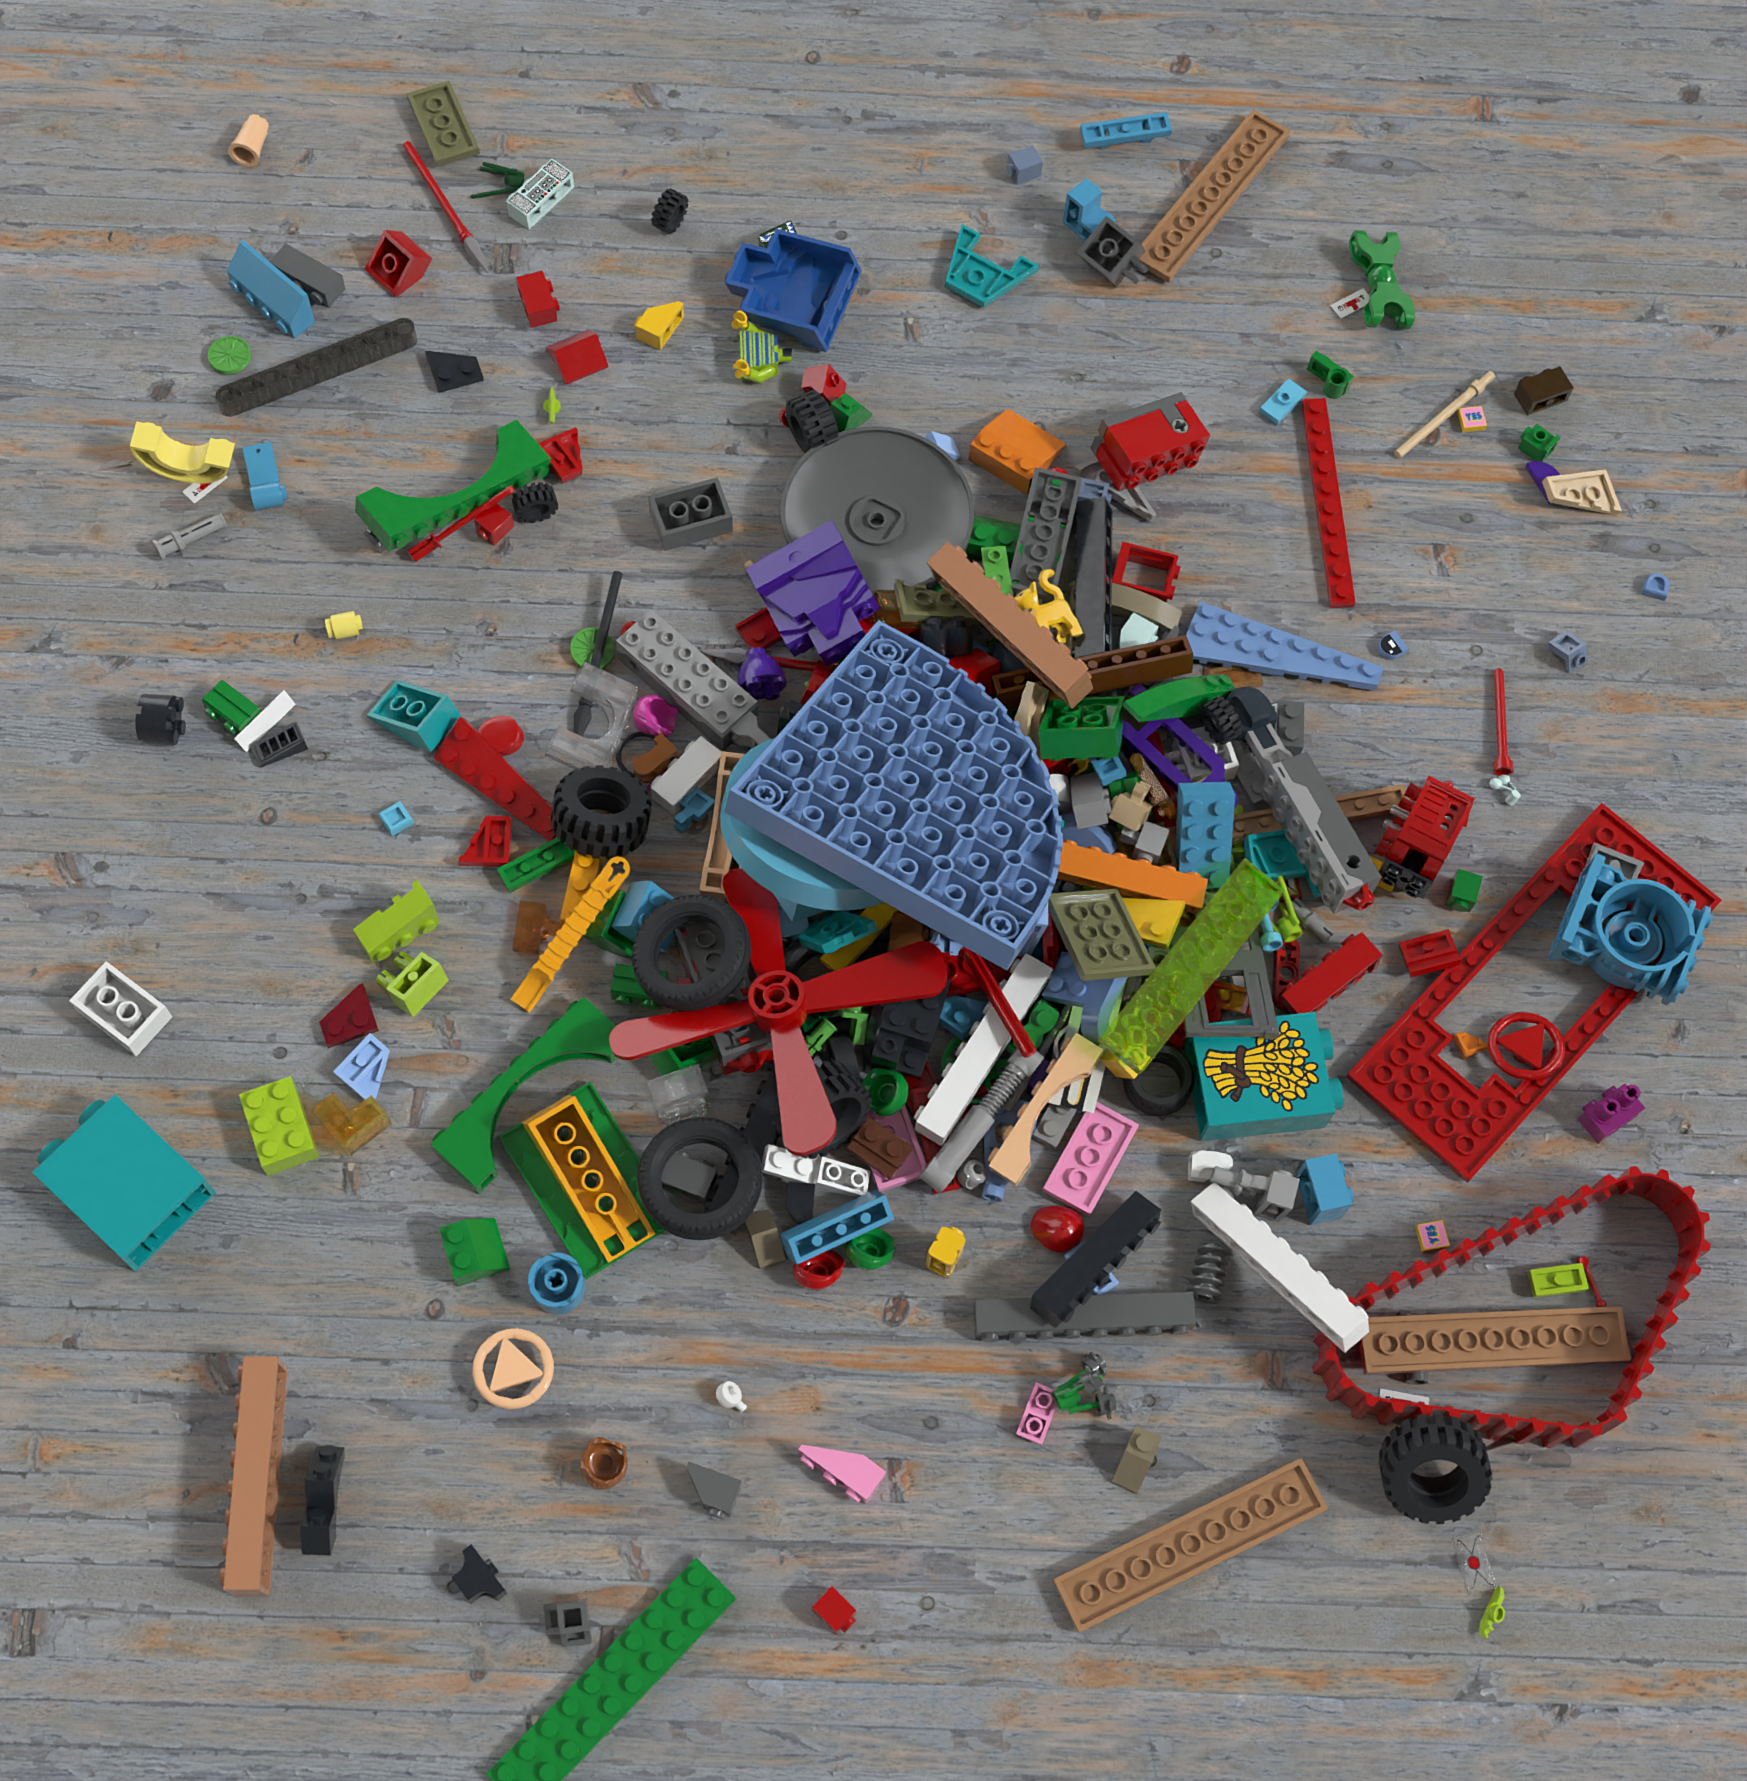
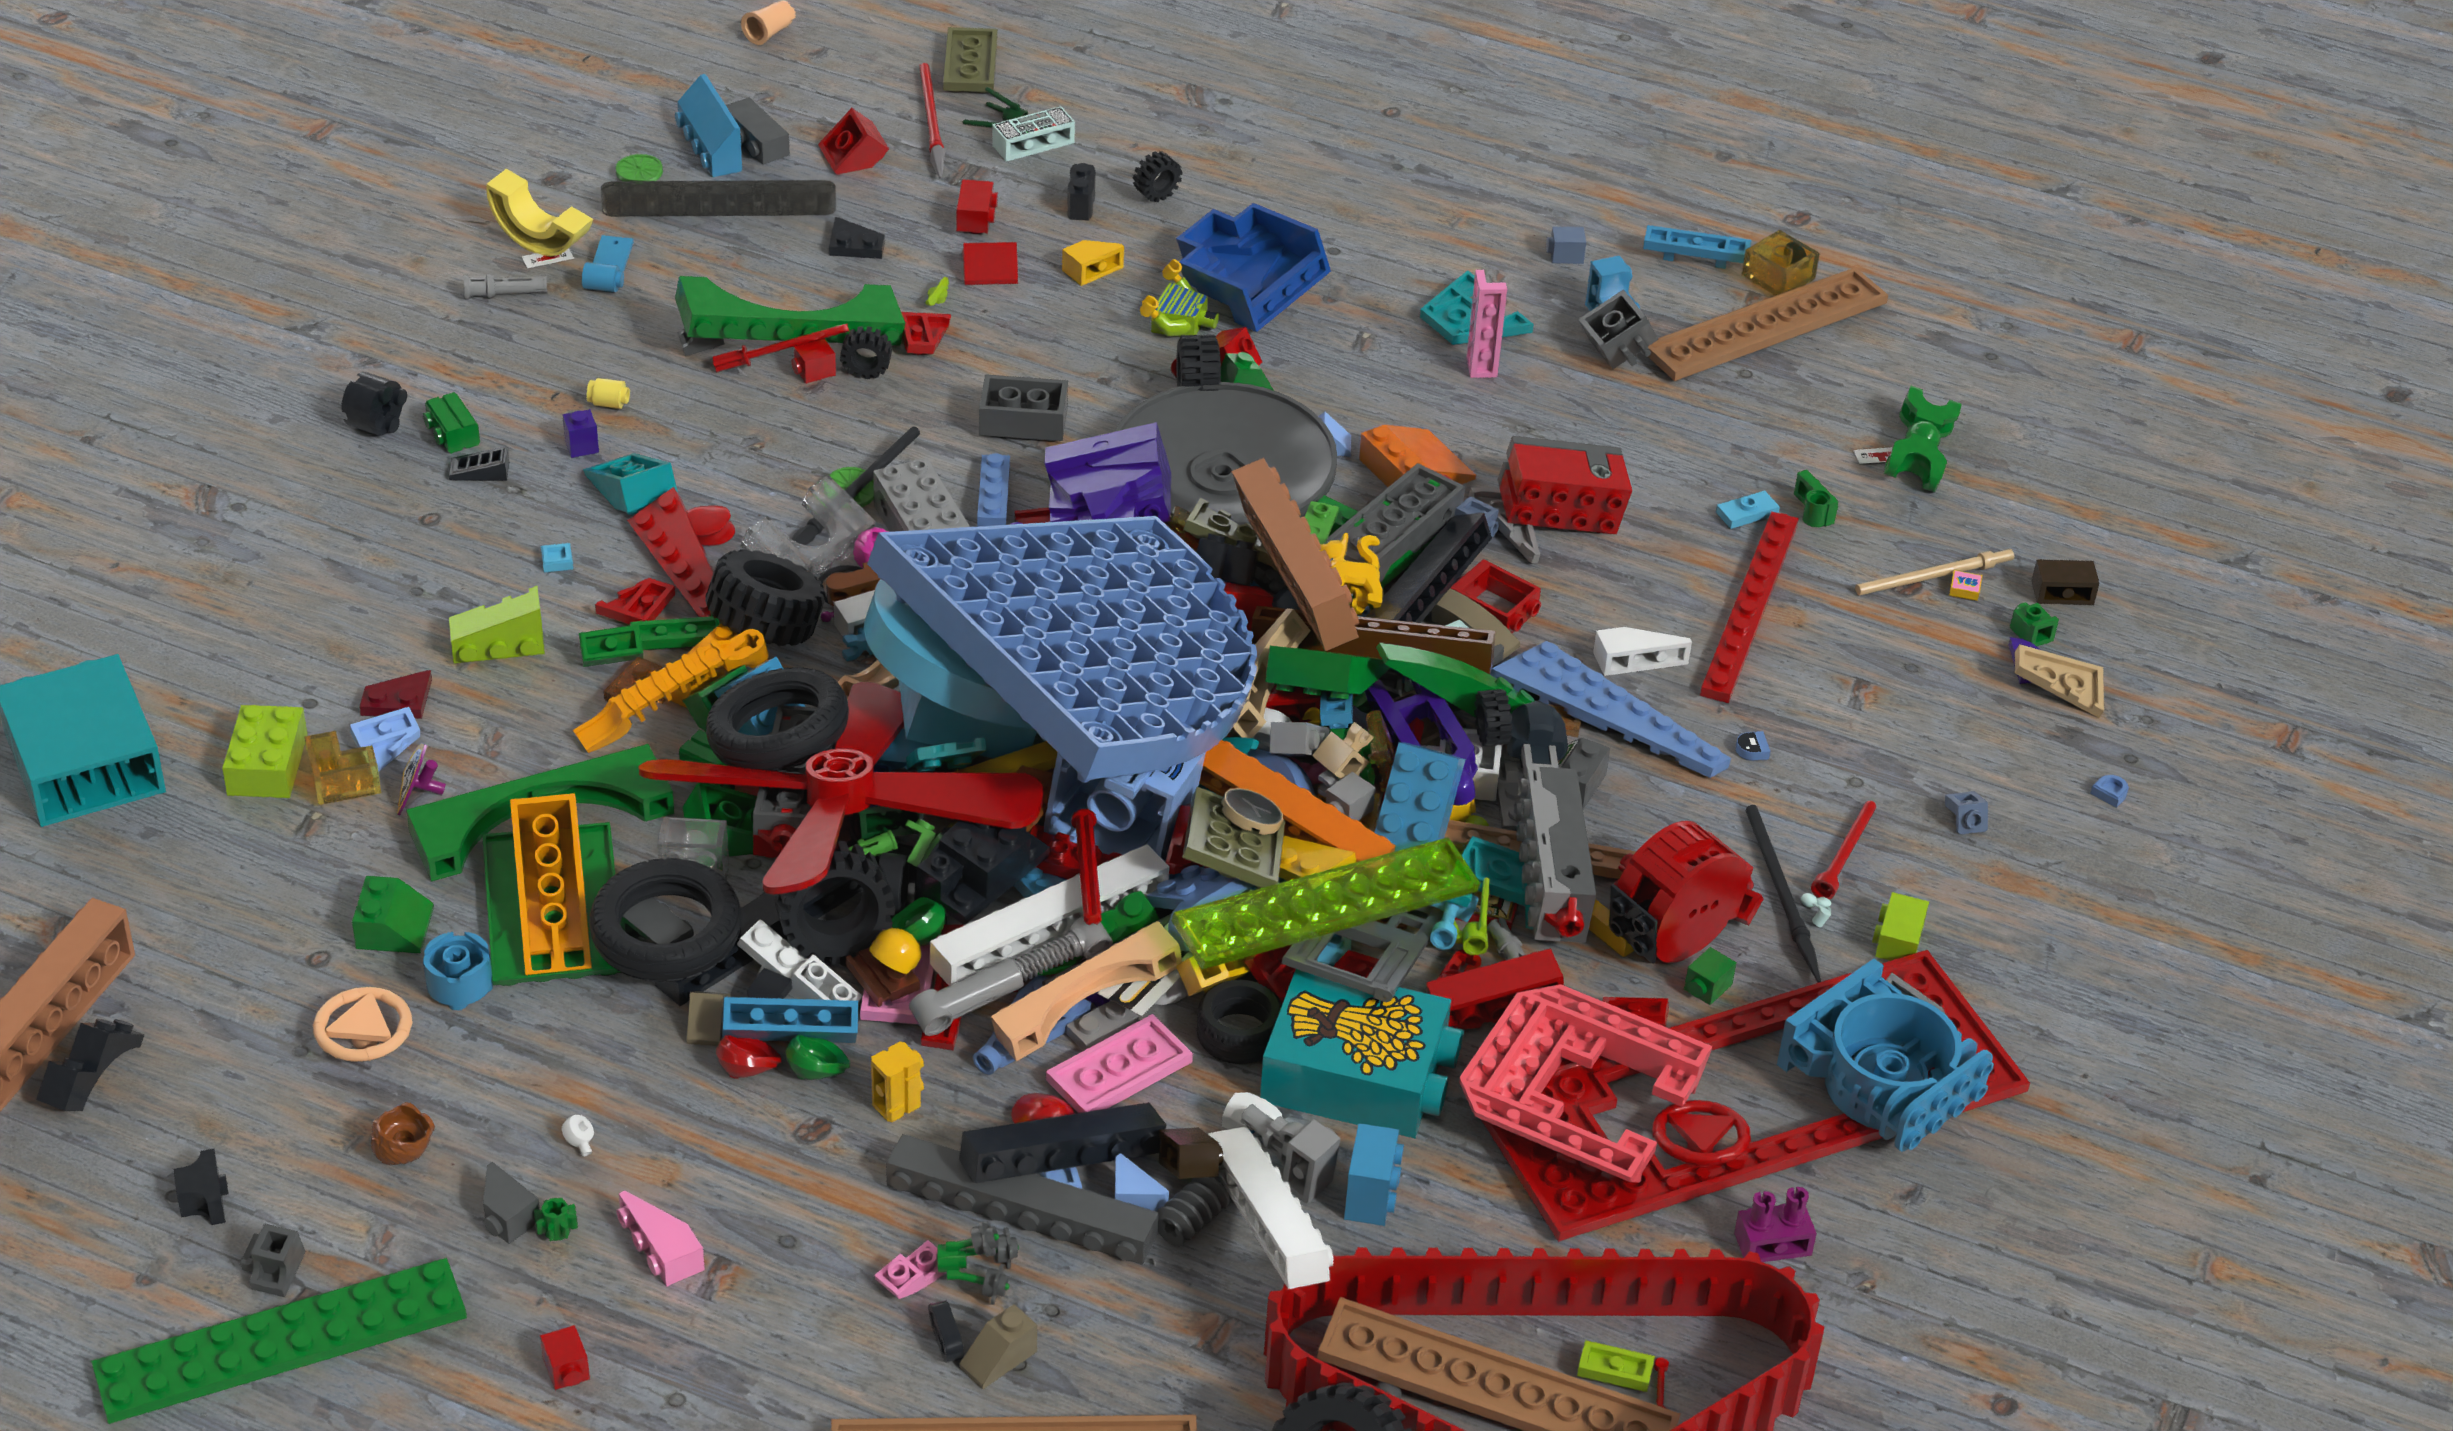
camera: 25 degrees right, 25 degrees down
(121, 1008) = (176, 609): white brick -> none
(265, 721) = (483, 440): white sticker -> none
(346, 680) = (580, 433): none -> dark purple brick
(414, 1102) = (423, 781): none -> magenta shield
(415, 984) = (483, 683): lime brick -> none
(496, 901) = (611, 645): none -> green slope
(614, 249) = (1081, 192): none -> black brick
(708, 610) = (993, 490): none -> medium blue plate
(756, 1478) = (556, 1219): none -> green gear
(887, 1132) = (896, 949): none -> yellow hair
(971, 1174) = (972, 1033): light grey piece -> none
(1018, 297) = (1485, 327): none -> bright pink fence
(1091, 1460) = (946, 1331): none -> black beam
(1098, 899) = (1251, 810): none -> tile
(1159, 1271) = (1137, 1187): none -> light blue slope
(1191, 1230) = (1189, 1153): none -> dark brown brick
(1198, 129) = (1780, 263): none -> clear yellow brick
(1269, 585) = (1638, 650): none -> white slope
(1405, 993) = (1561, 1023): none -> coral slope
(1468, 1044) = (1635, 1118): orange tile -> none
(1499, 812) = (1799, 931): none -> black piece
(1574, 788) = (1901, 927): none -> lime brick

